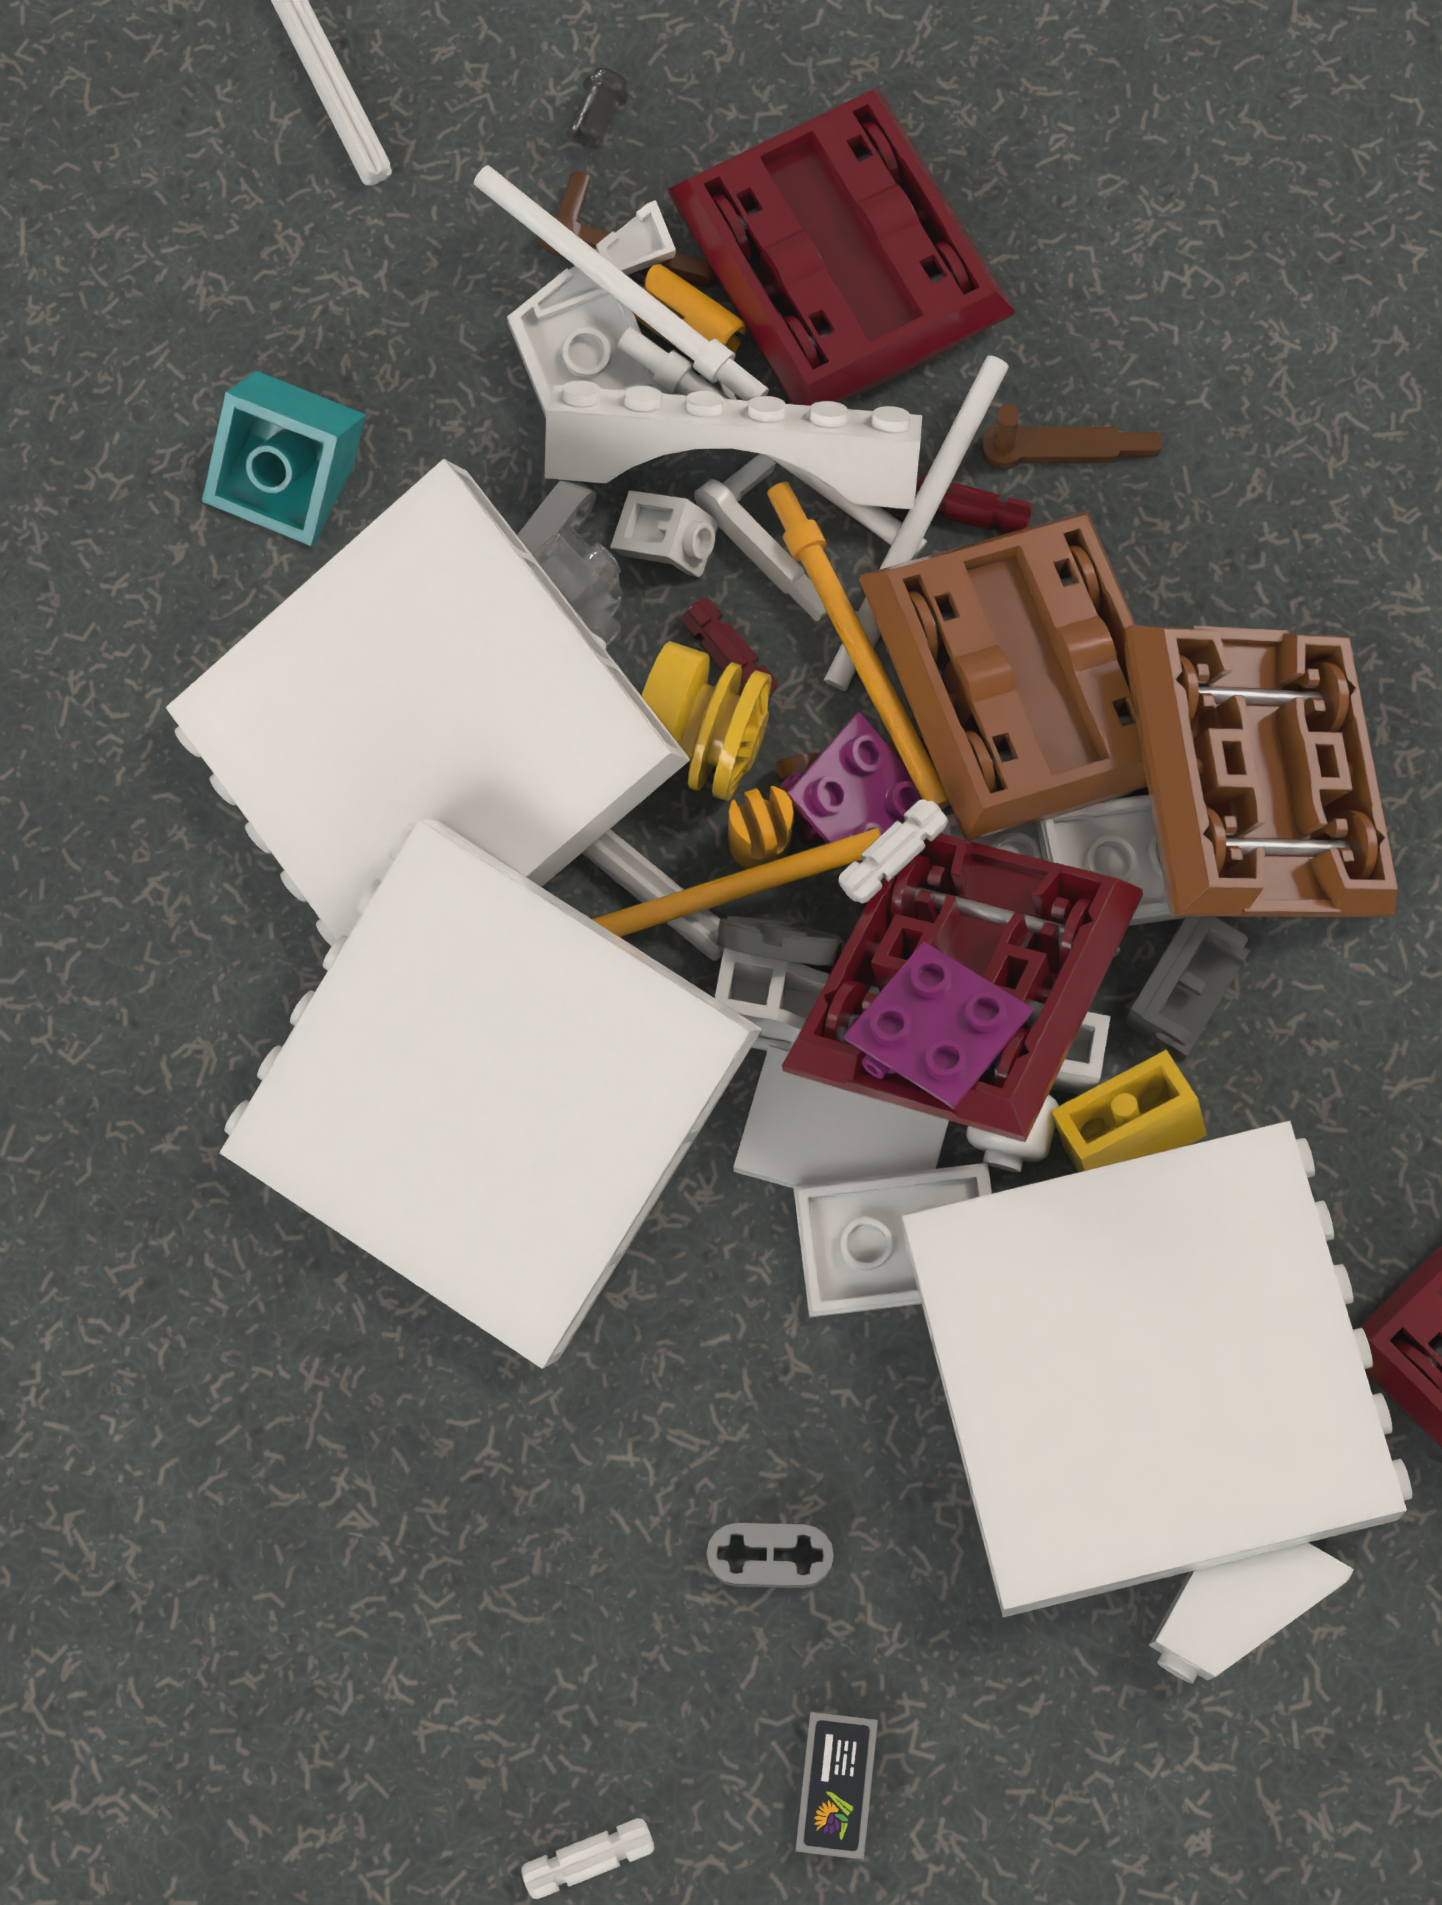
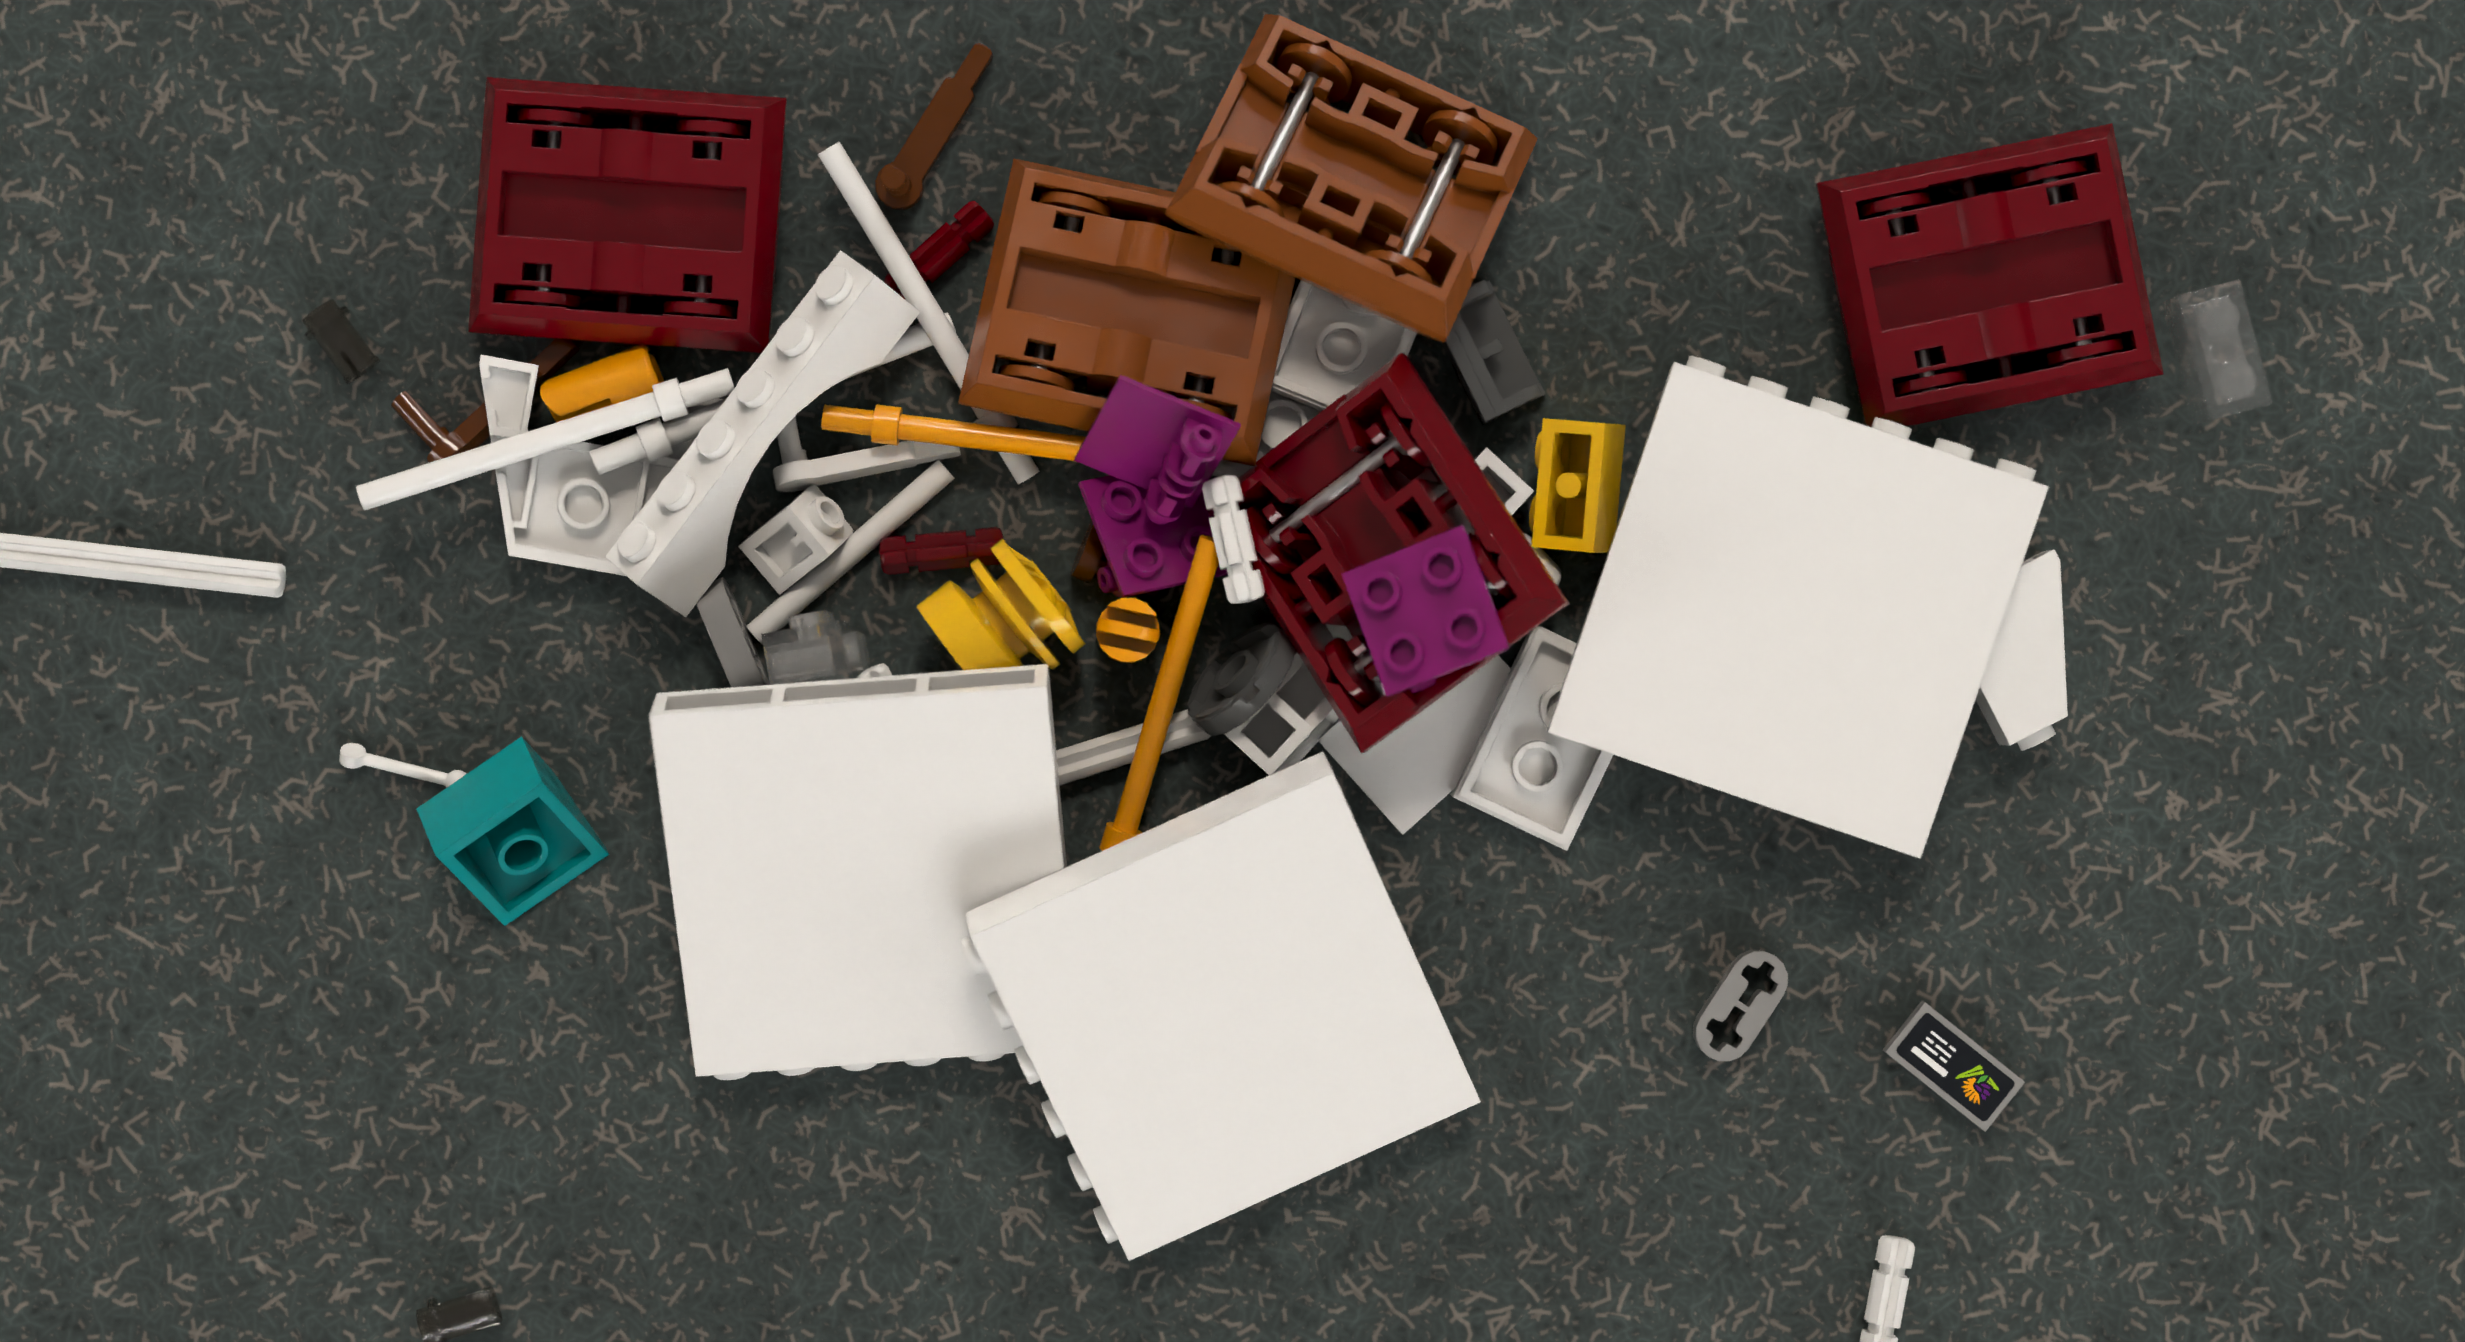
camera: 60 degrees left, 15 degrees up
(271, 309) = (355, 756): none -> white hinge
(700, 587) = (852, 550): none -> white bar
(931, 742) = (1157, 445): none -> magenta hinge

